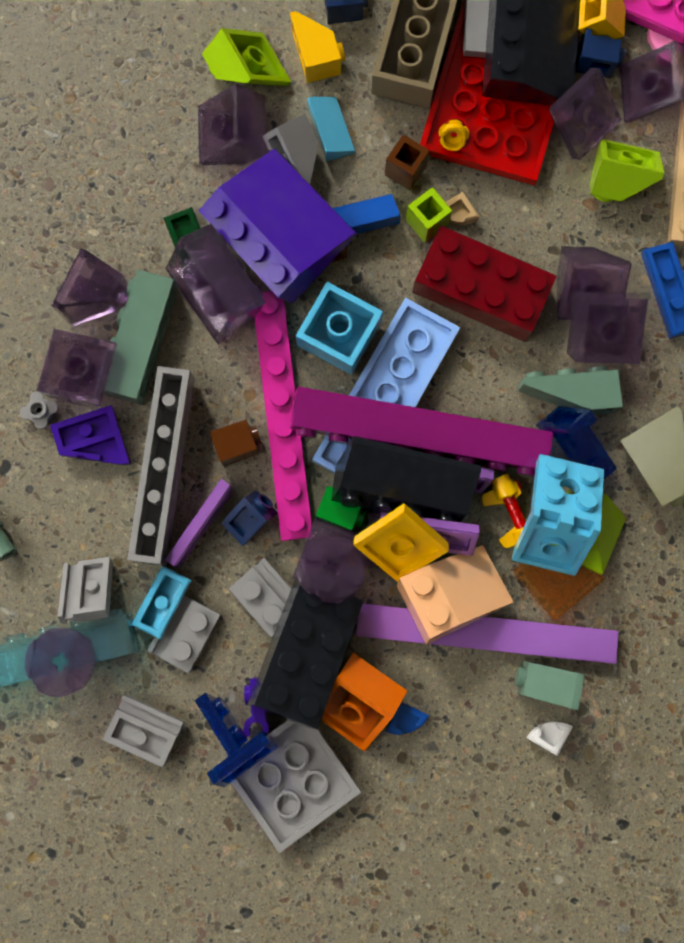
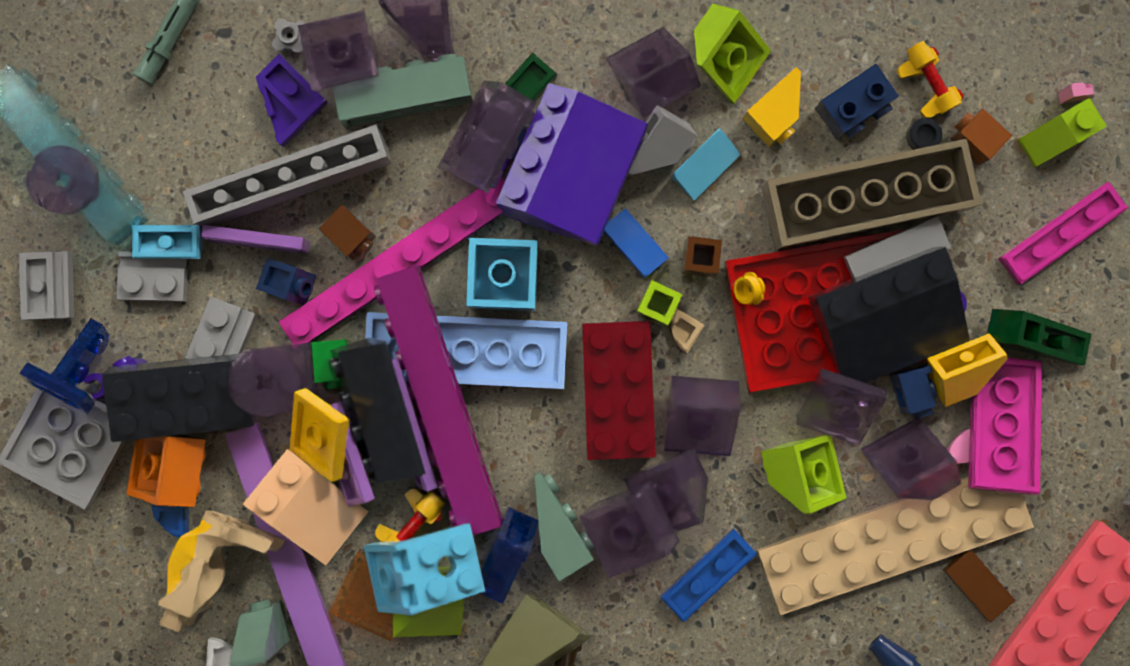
camera: 65 degrees right, 5 degrees up
(86, 590) = (142, 168): light grey plate -> none
(461, 712) = (198, 565): none -> tan hips
(537, 227) = (702, 415): none -> clear purple slope

